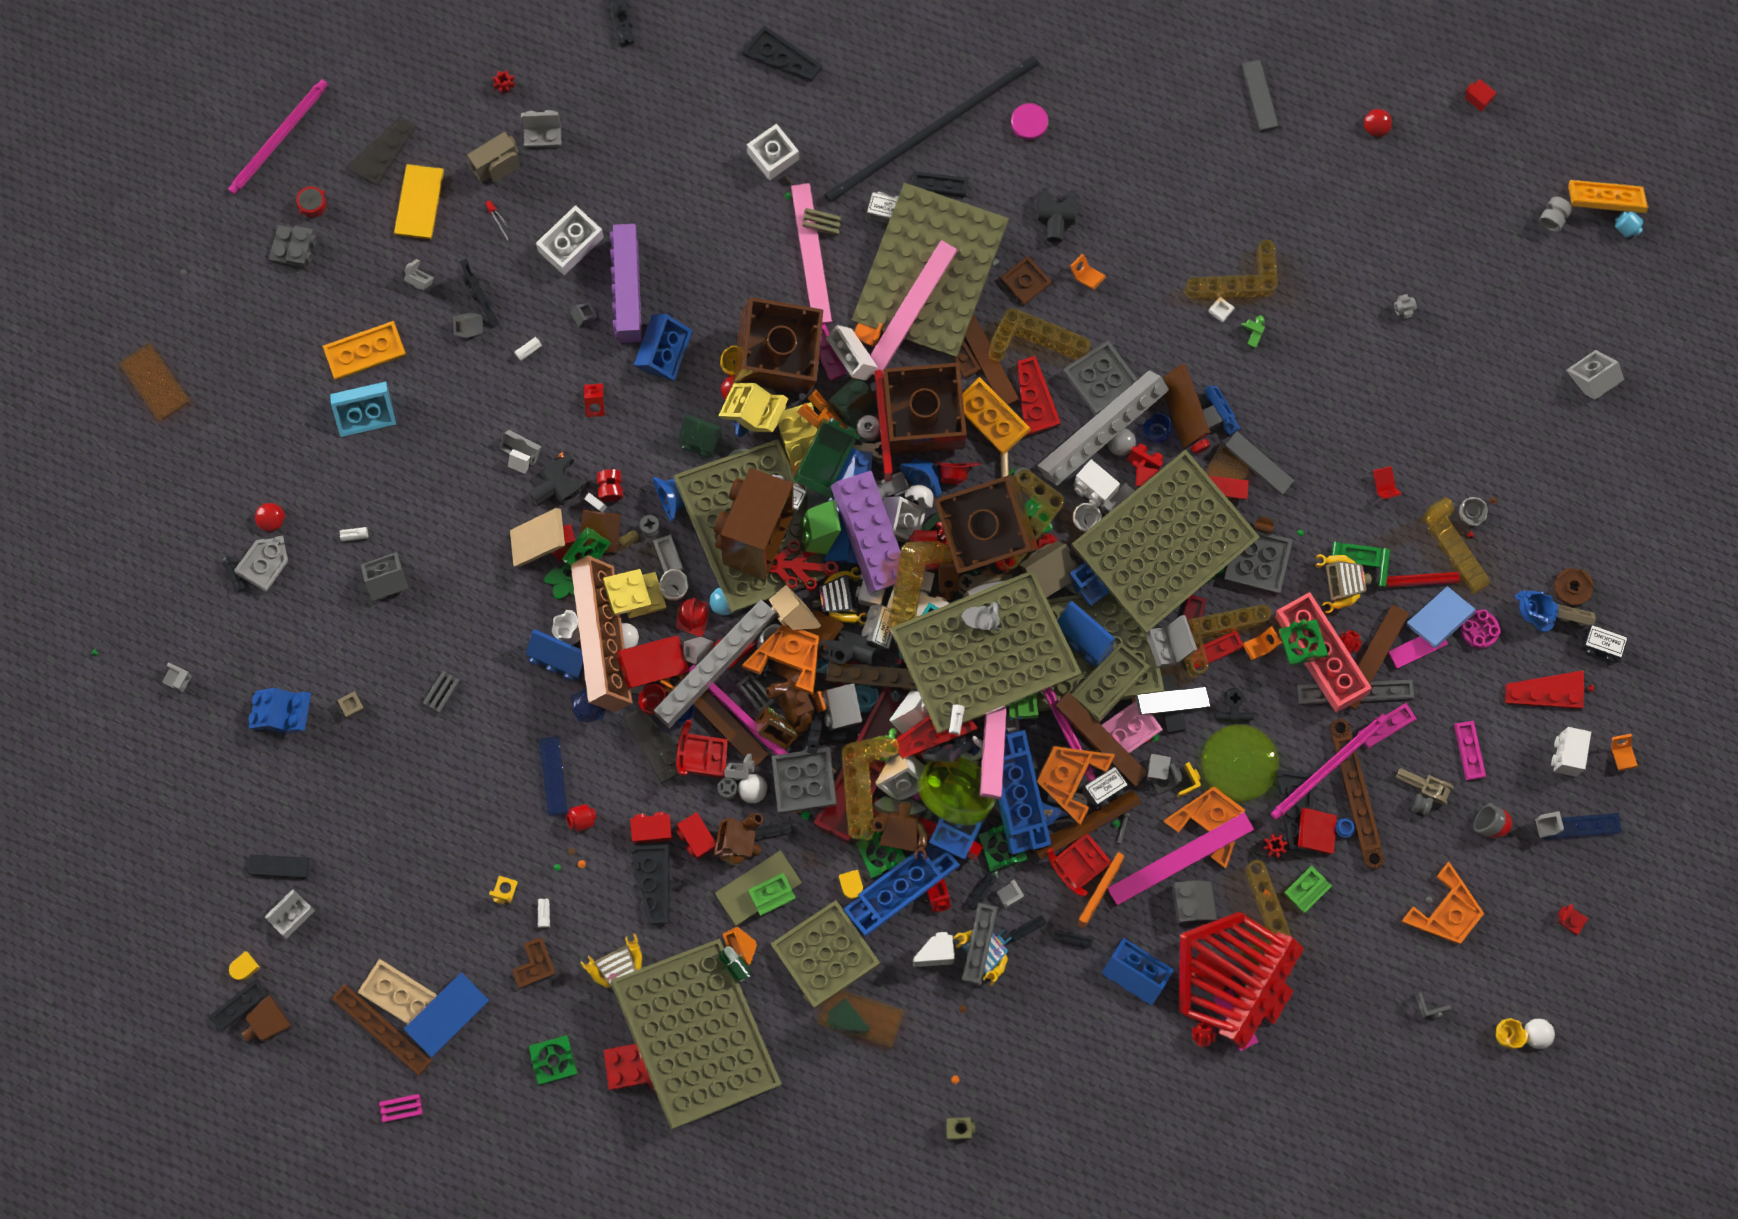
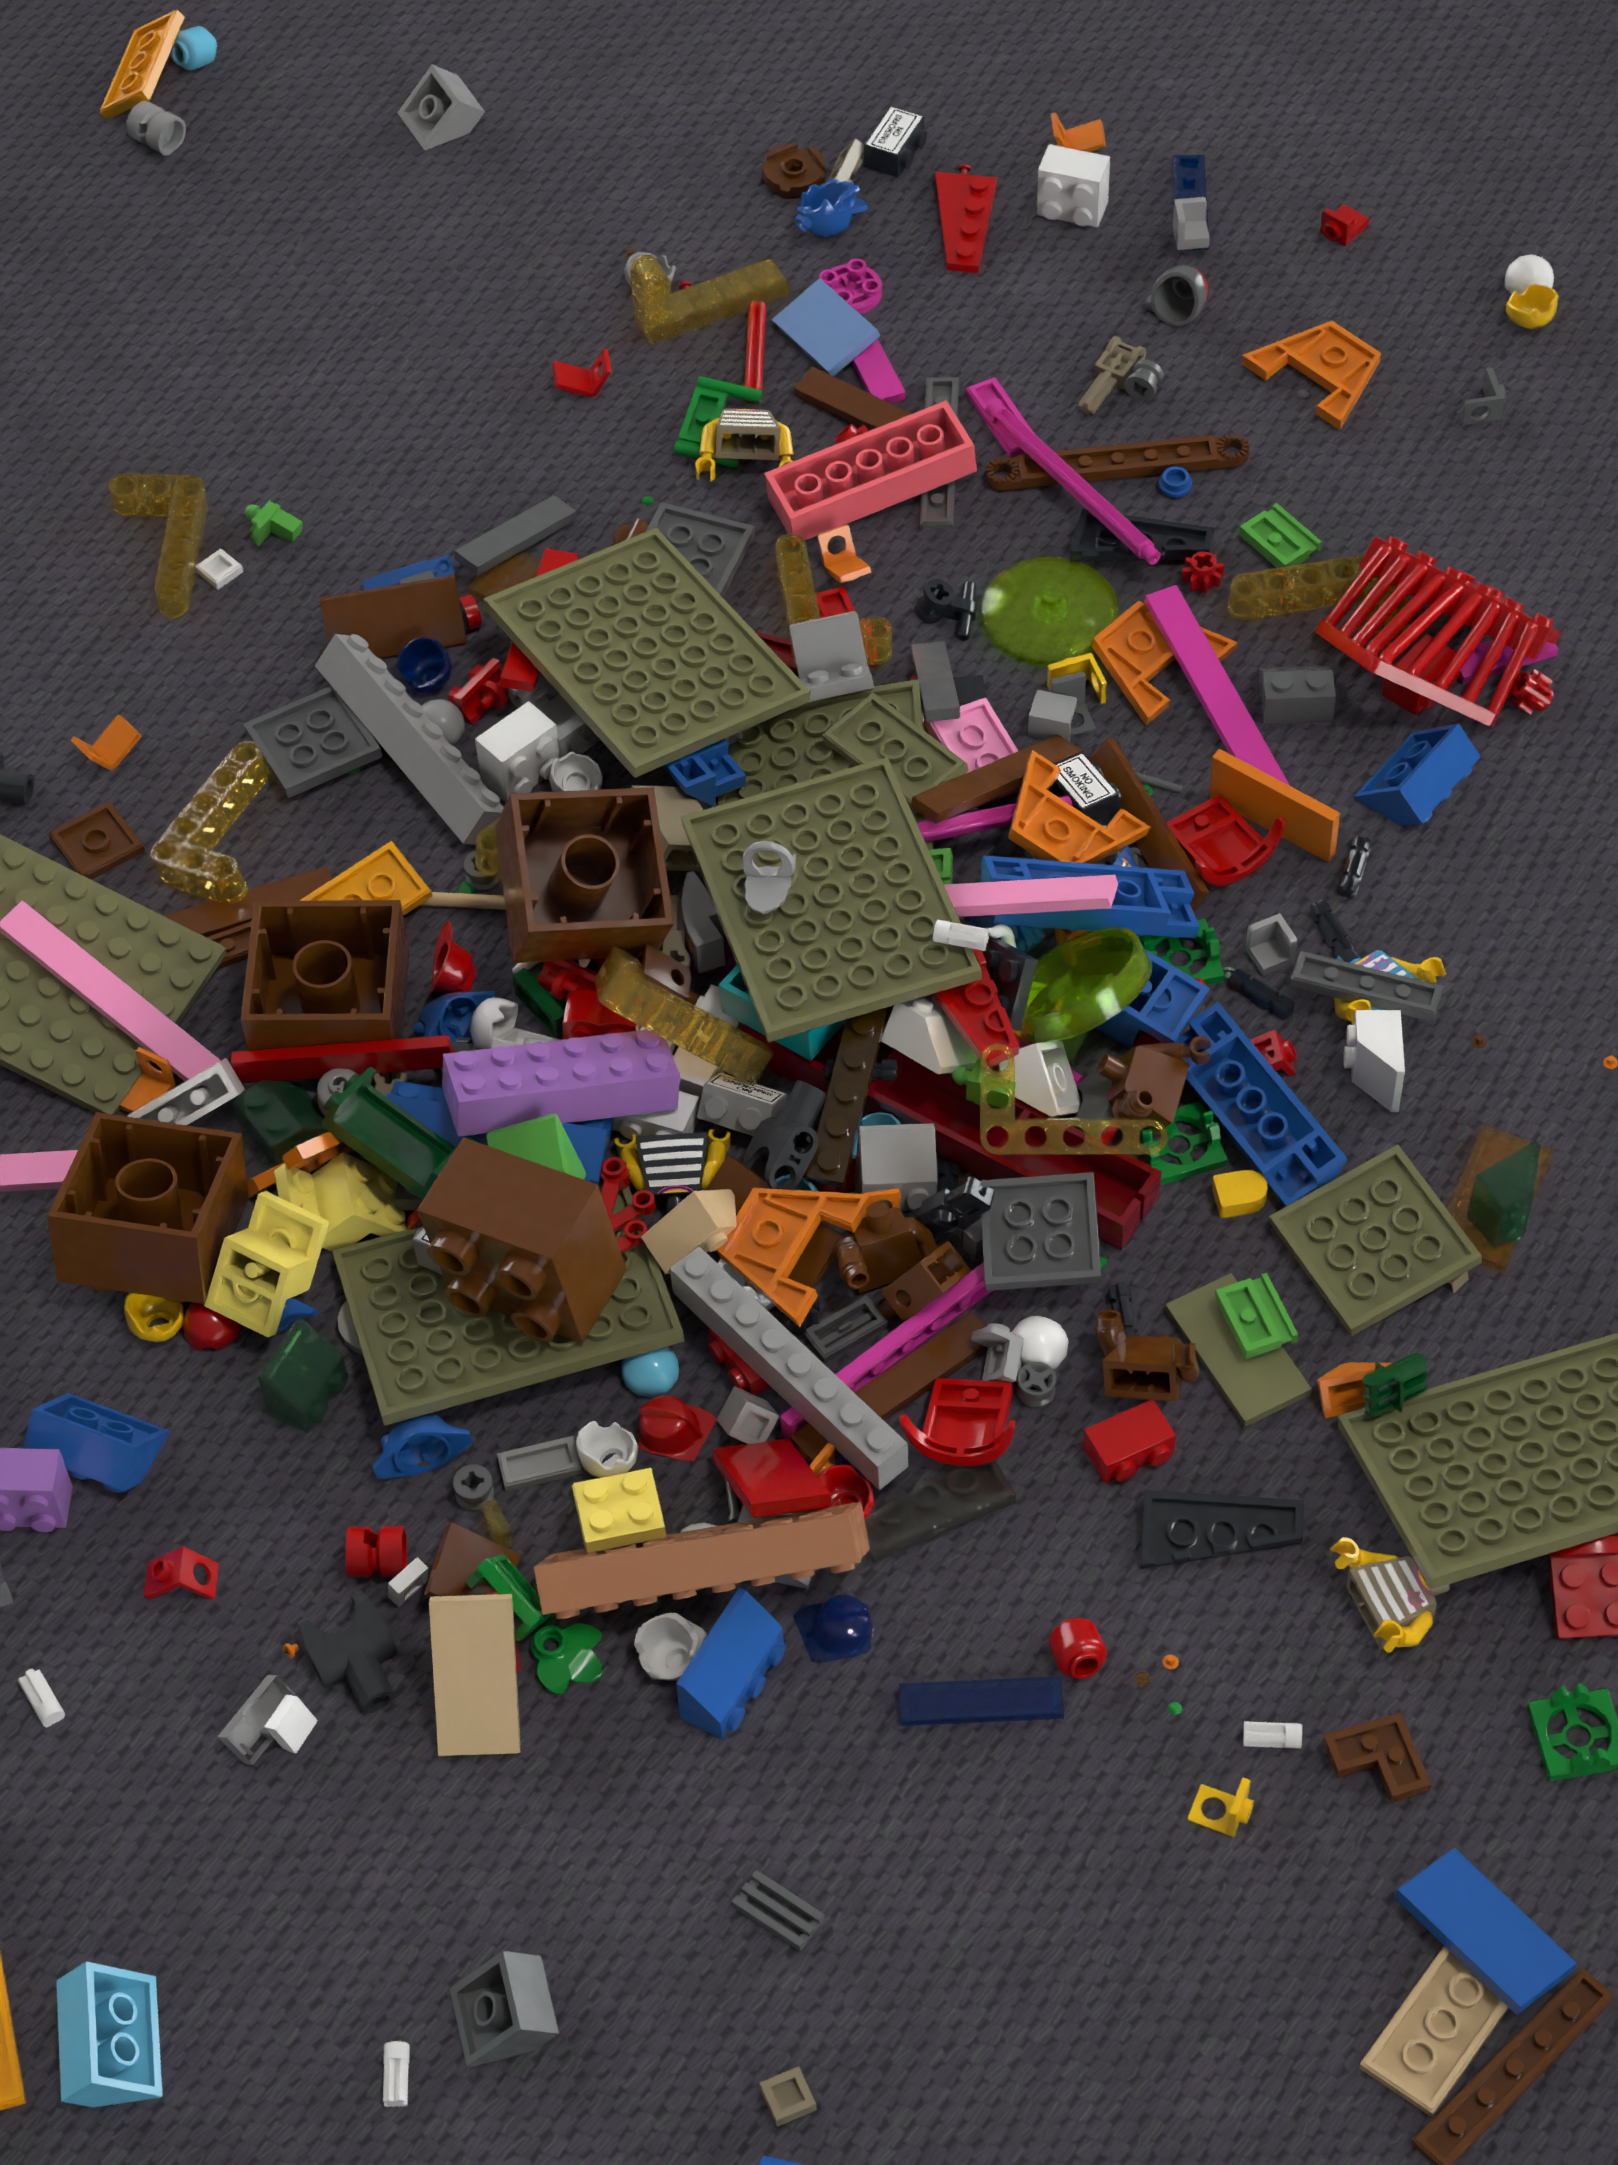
camera: 80 degrees left, 20 degrees down
(651, 828) = (1109, 1522): red brick -> none
(1036, 401) = (324, 841): red wing -> none
(1085, 635) = (808, 754): blue slope -> none
(1312, 626) = (839, 505): green piece -> none
(1317, 831) = (1180, 513): red tile -> none
(1405, 306) = (272, 323): light grey gear -> none
(1470, 750) = (1054, 319): dark pink tile -> none

